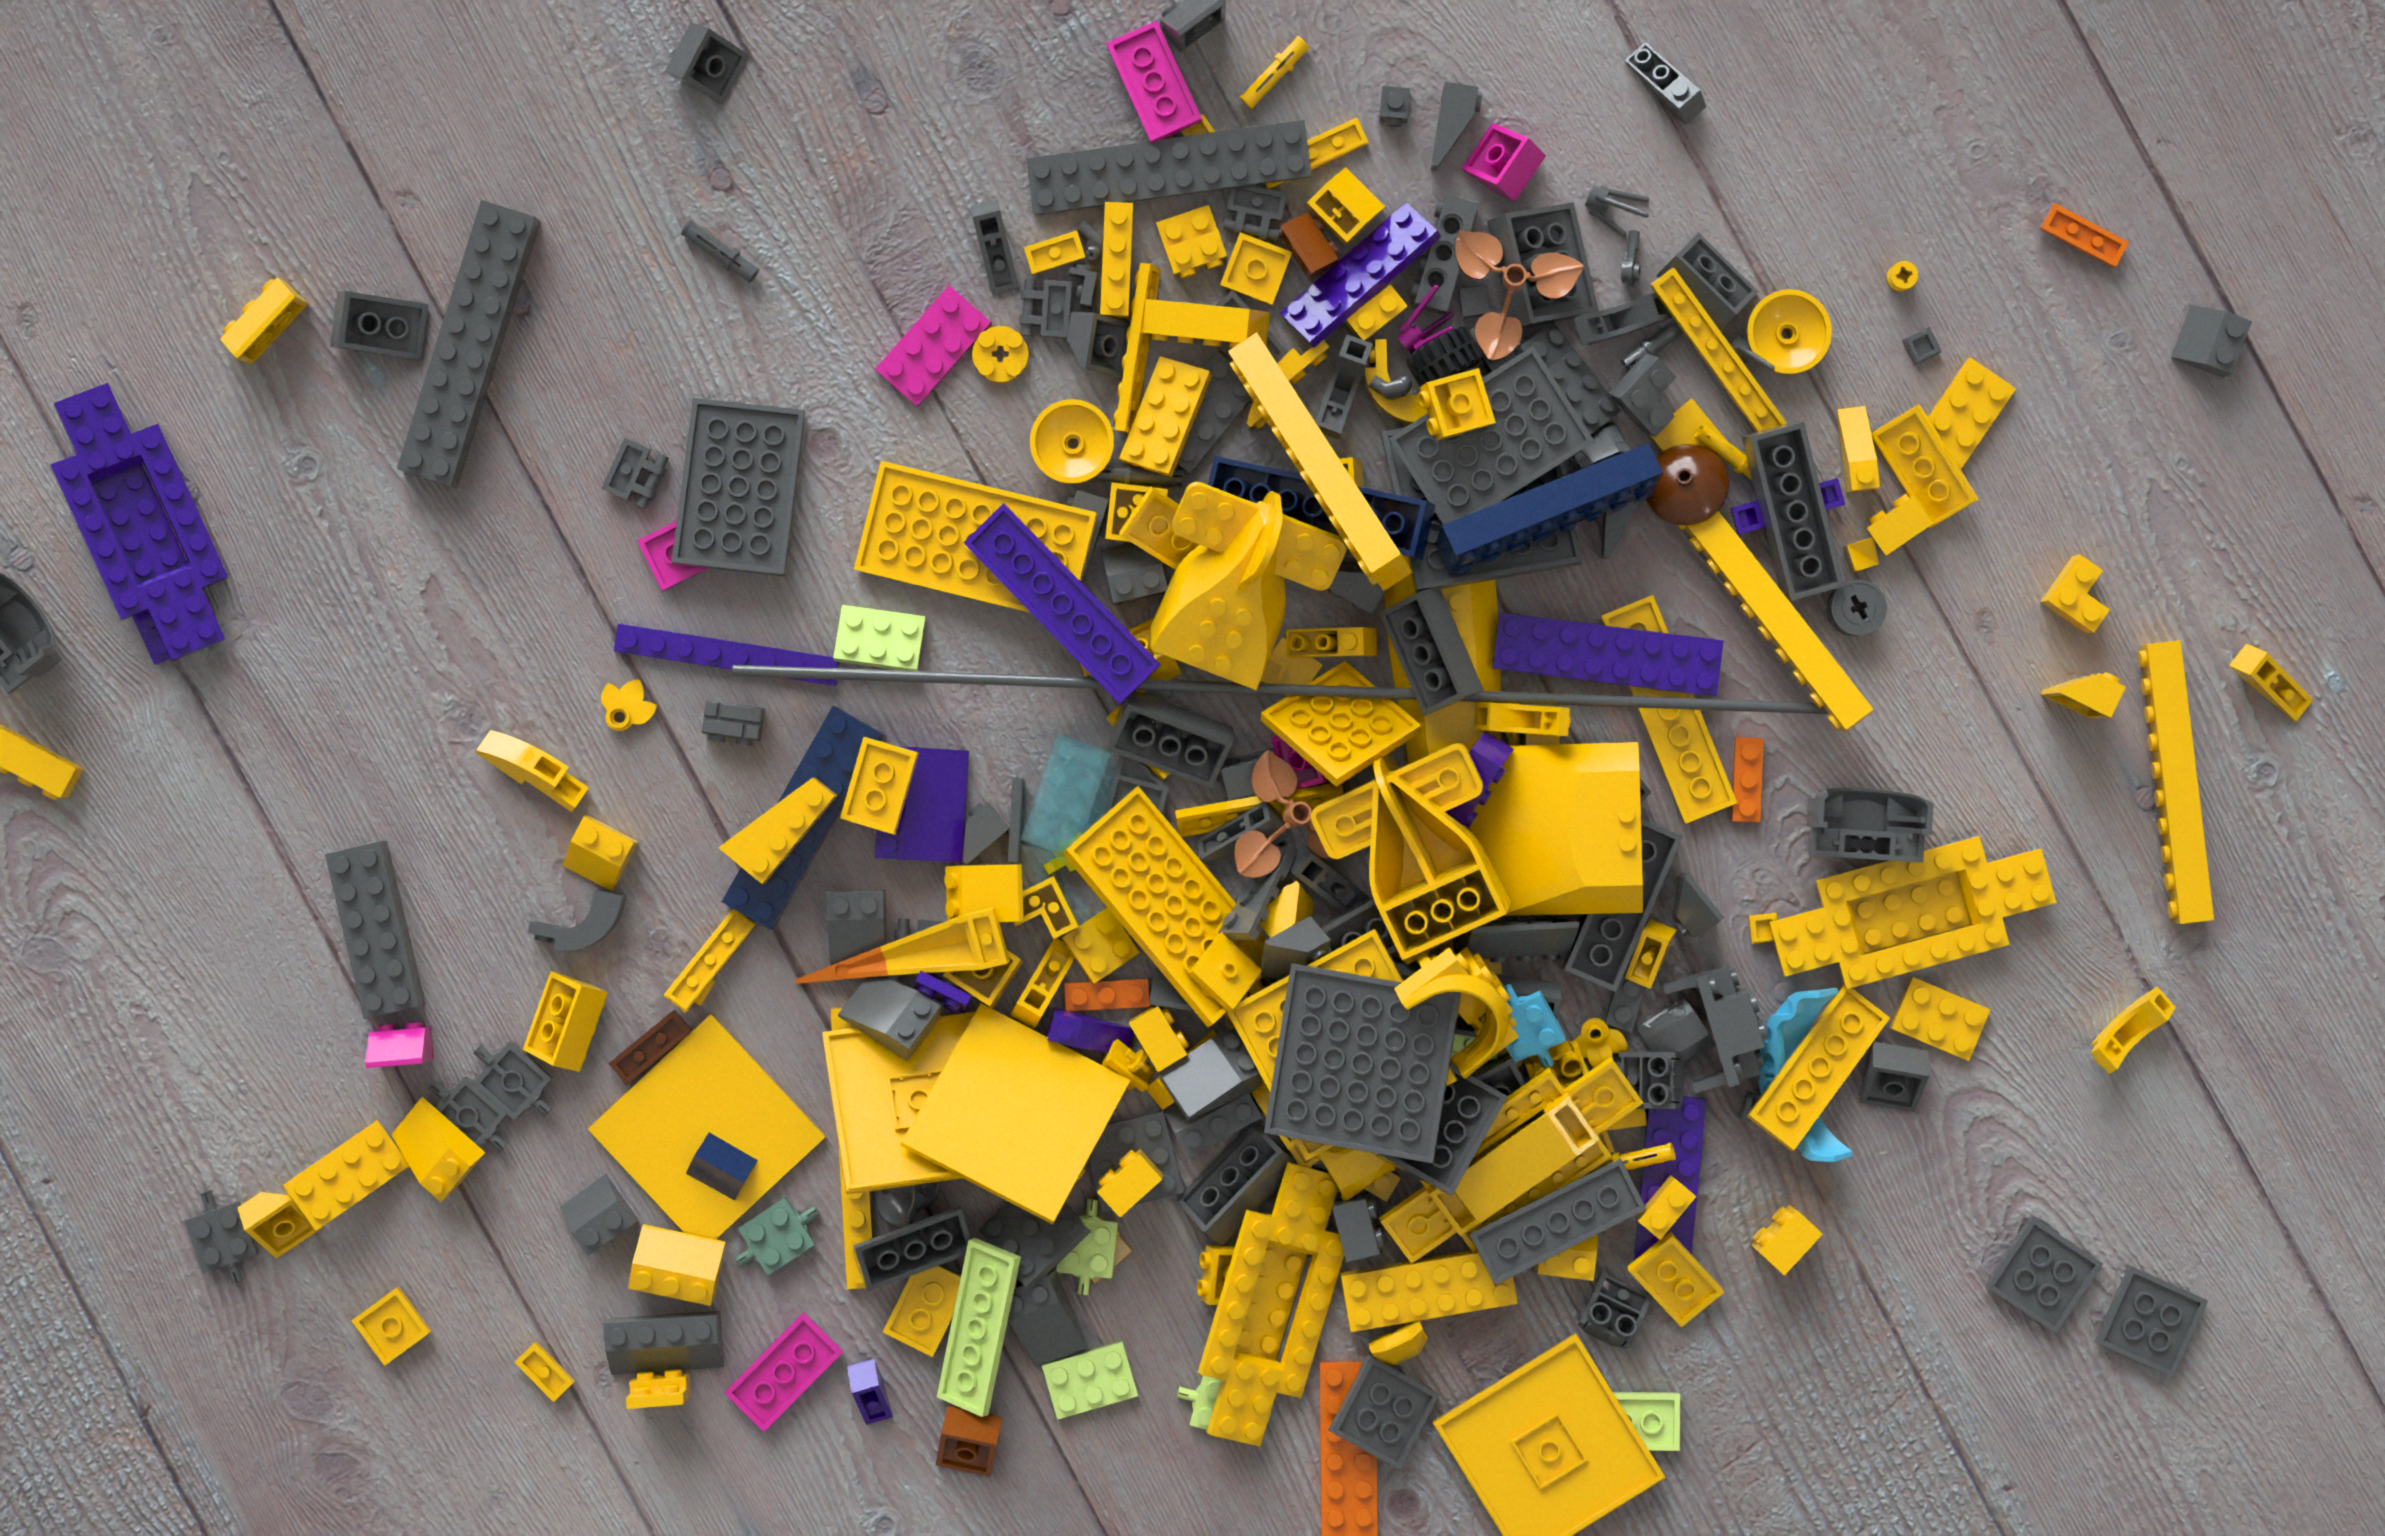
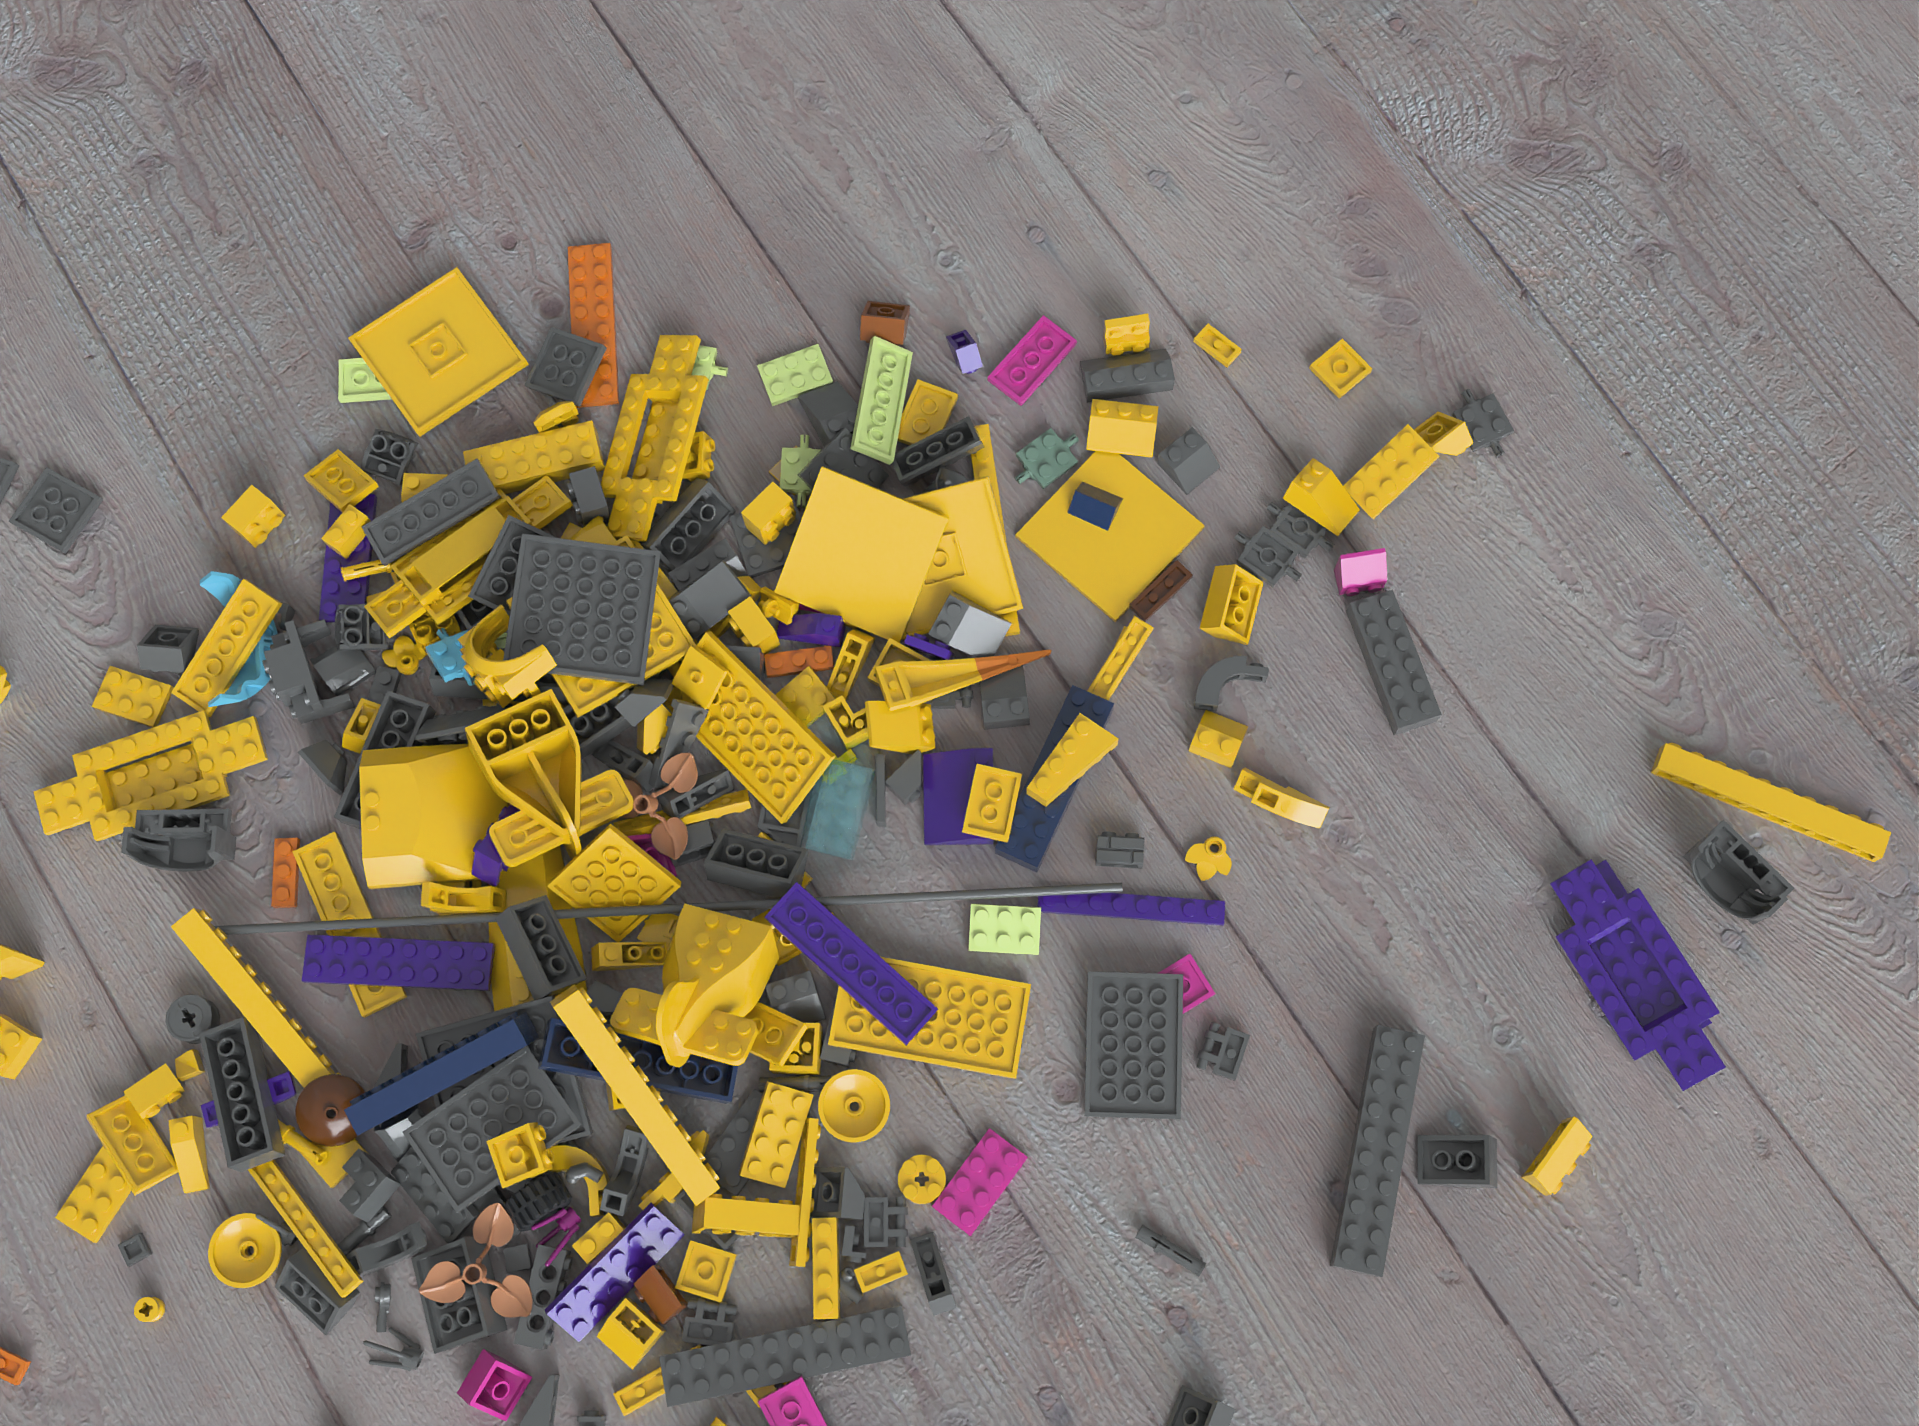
camera: 175 degrees left, 15 degrees down
(1192, 242) = (762, 1291): yellow plate -> none
(1759, 927) = (276, 756): yellow tile -> none

